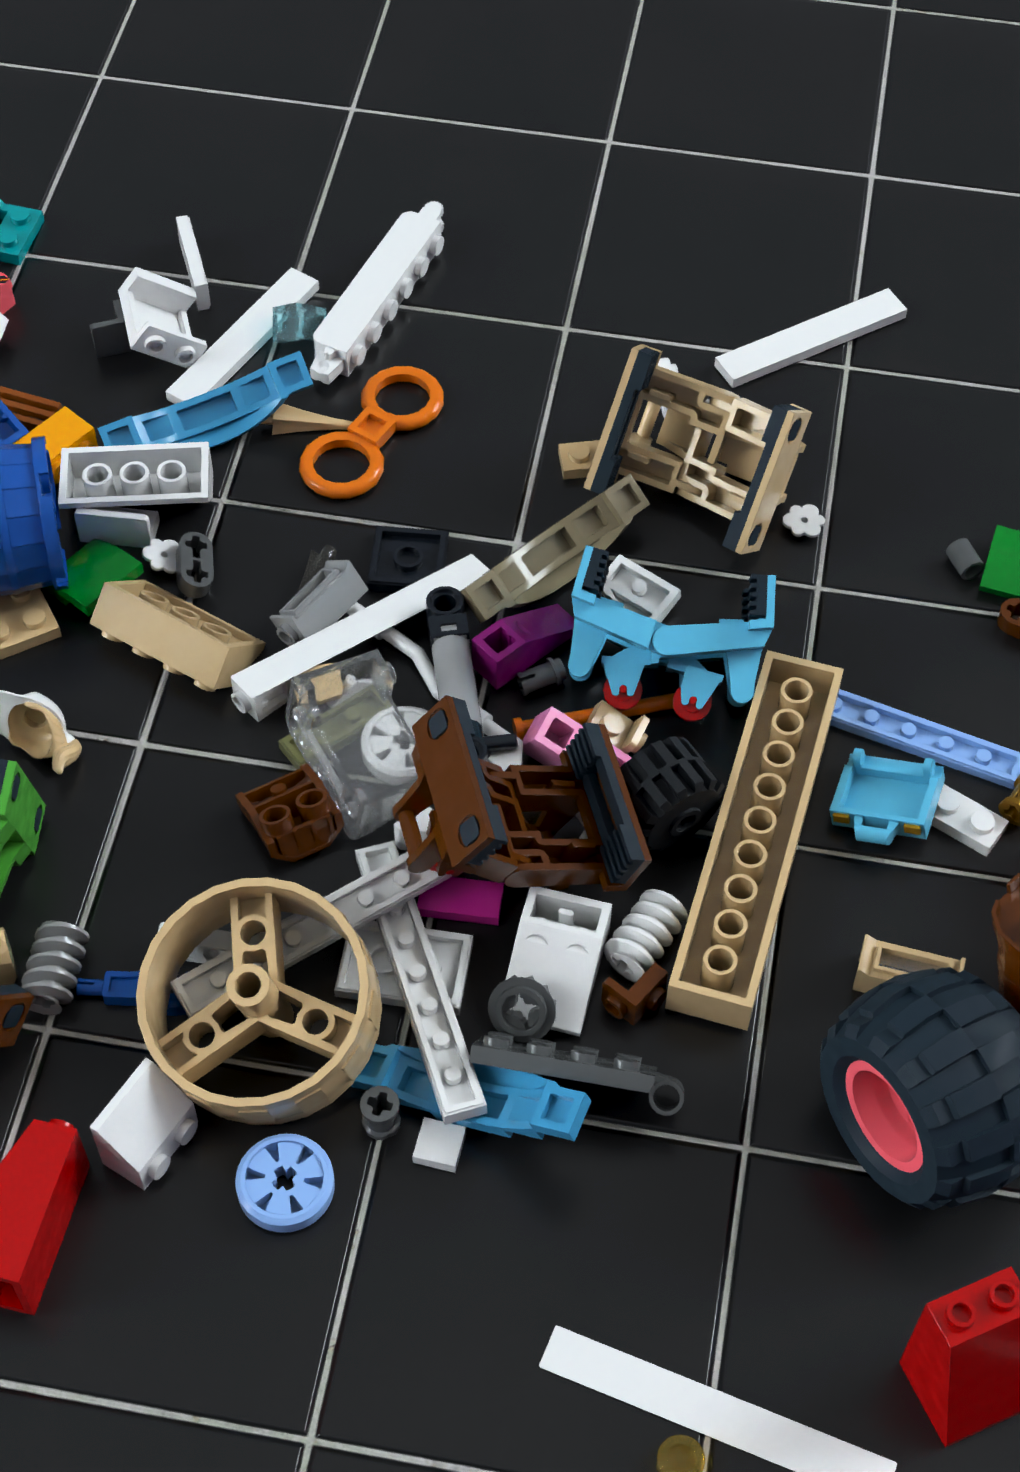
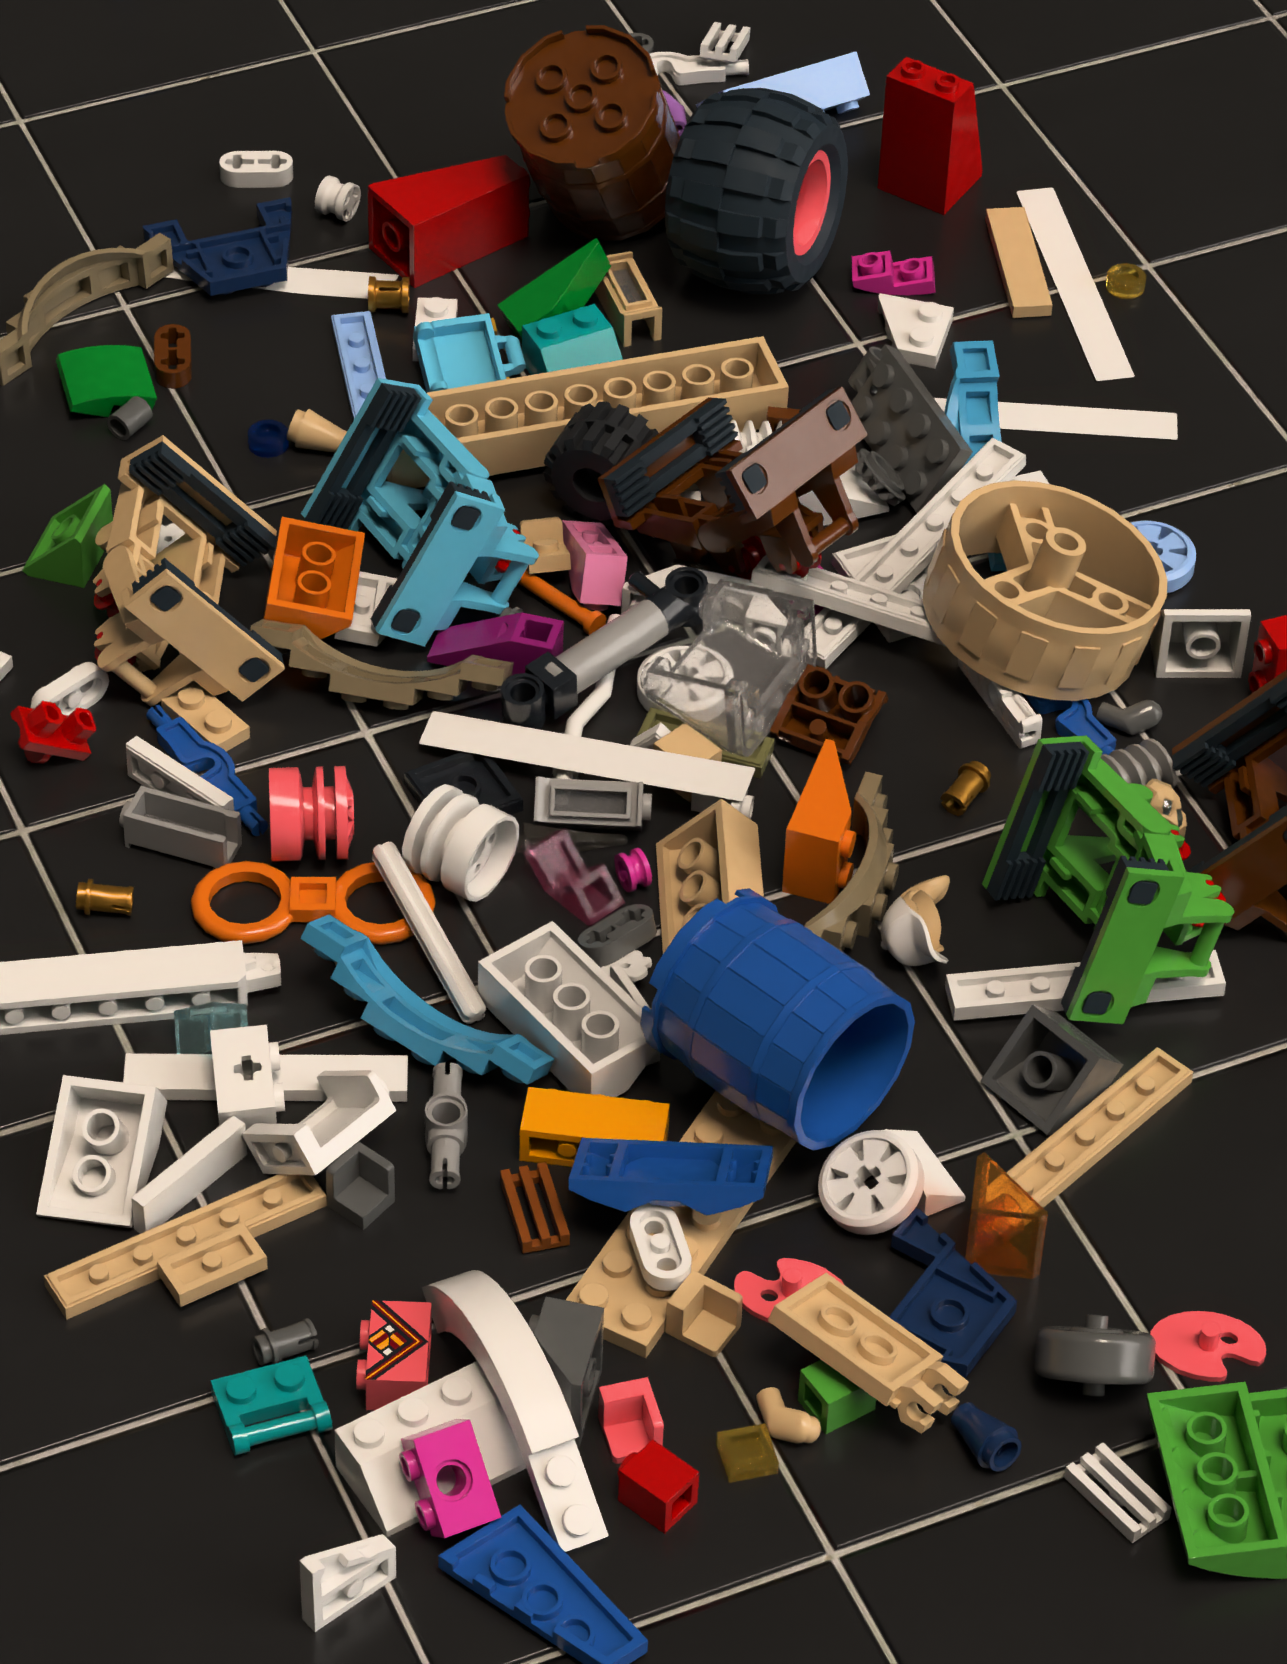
camera: 125 degrees left, 10 degrees down
(38, 244) = (284, 1342): none -> dark grey pin
(110, 735) = (864, 896): none -> dark tan piece
(114, 389) = (446, 1126): none -> light grey pin
(115, 1031) = (1130, 719): none -> dark grey arm
(120, 246) = (212, 1265): none -> tan plate
(148, 867) = (972, 779): none -> pearl gold pin
(160, 226) = (134, 1261): none -> tan tile
(165, 714) = (820, 833): none -> orange slope
(232, 304) = (240, 1056): none -> white brick
(243, 603) = (633, 870): none -> dark pink bush
(252, 236) = (100, 1150): none -> white slope
(259, 574) = (563, 875): none -> clear pink slope
(290, 461) = (429, 933): none -> white axle
(342, 498) = (460, 842): none -> white wheel
(431, 436) = (309, 813): none -> coral wheel
(466, 322) = (104, 898): none -> pearl gold pin
(486, 385) = (181, 827): none -> light grey window
(524, 435) = (199, 755): none -> blue piece
(529, 403) = (162, 773): none -> white tile
(544, 1227) = (1085, 420): none -> white sticker
(622, 339) = (51, 733): none -> red hips
(677, 553) = (314, 576): none -> orange slope
(728, 1203) = (916, 327): none -> white wing
(773, 1372) = (1018, 262): none -> tan tile
(820, 1236) = (880, 274): none -> dark pink slope
(834, 464) = (68, 545): none -> bright green slope
(848, 886) = (569, 341): none -> teal slope
(868, 661) = (314, 432): none -> tan cone
(889, 638) = (268, 438): none -> clear blue tile
(922, 895) = (558, 289): none -> green slope

